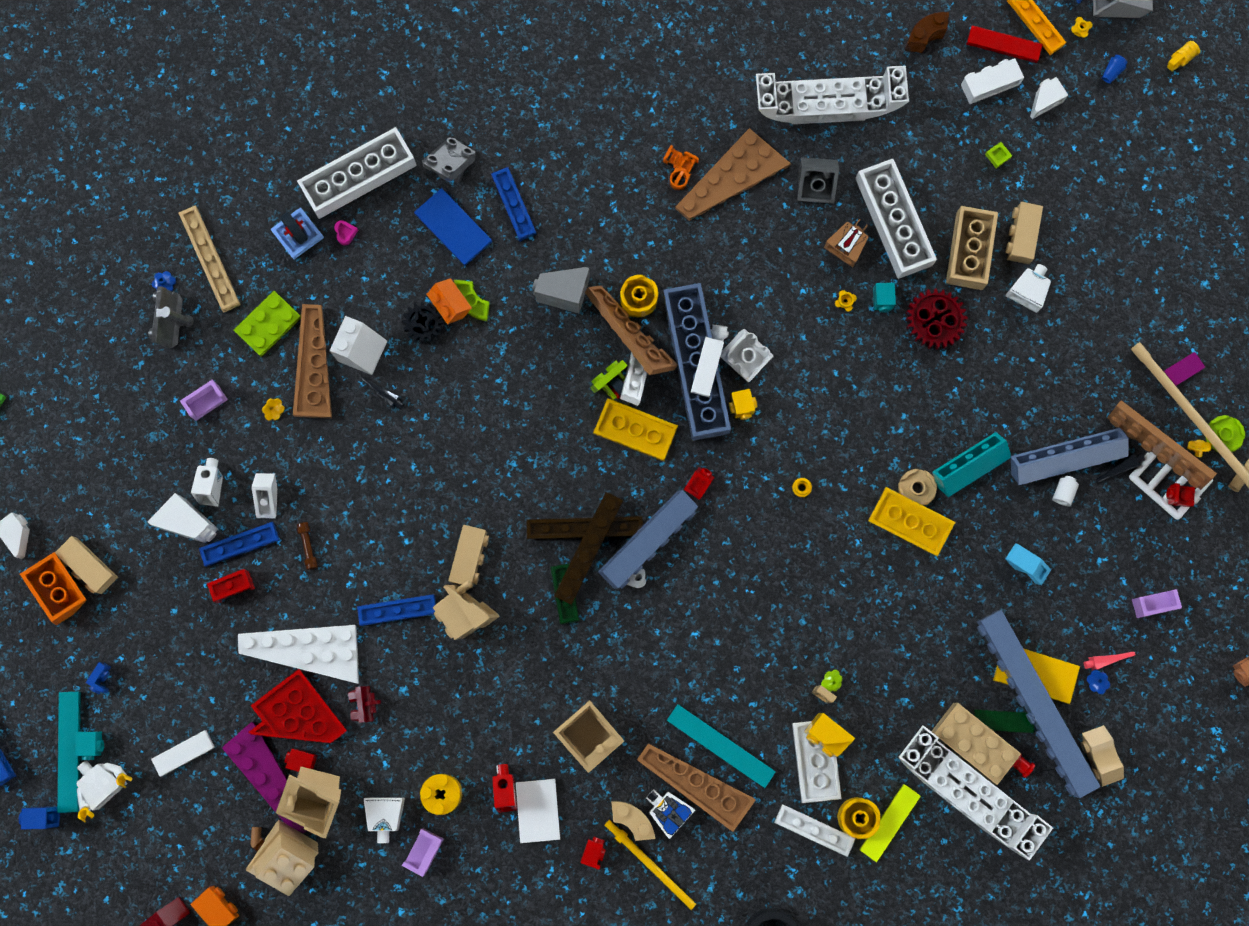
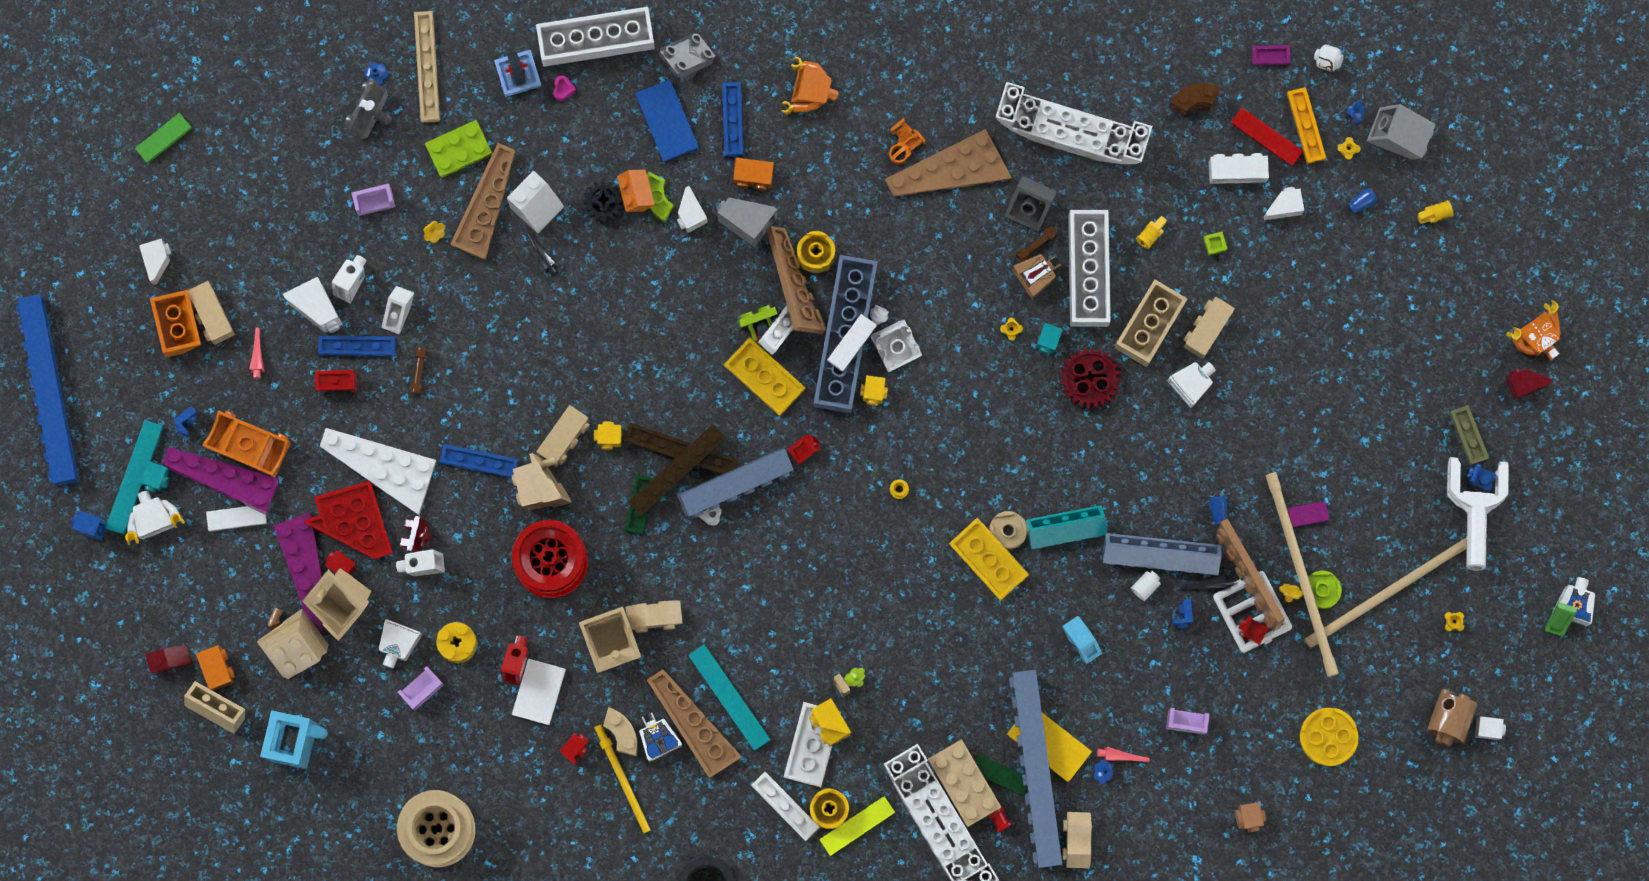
camera: 20 degrees right, 0 degrees up
(148, 596) = (256, 364): none -> coral piece
(166, 678) = (247, 443): none -> orange piece
(169, 719) = (237, 483): none -> magenta wing
(384, 727) = (428, 563): none -> white torso
(483, 660) = (557, 582): none -> red wheel
(508, 302) = (690, 212): none -> white slope
(510, 539) = (608, 435): none -> yellow brick
(552, 245) = (753, 173): none -> orange brick
(575, 148) = (810, 88): none -> orange torso
(620, 694) = (645, 616): none -> tan brick
(844, 203) = (1048, 234): none -> reddish brown bar
(937, 167) = (1151, 233): none -> yellow hinge
(1102, 395) = (1218, 508): none -> blue cone
(1113, 502) = (1186, 611): none -> blue bracket

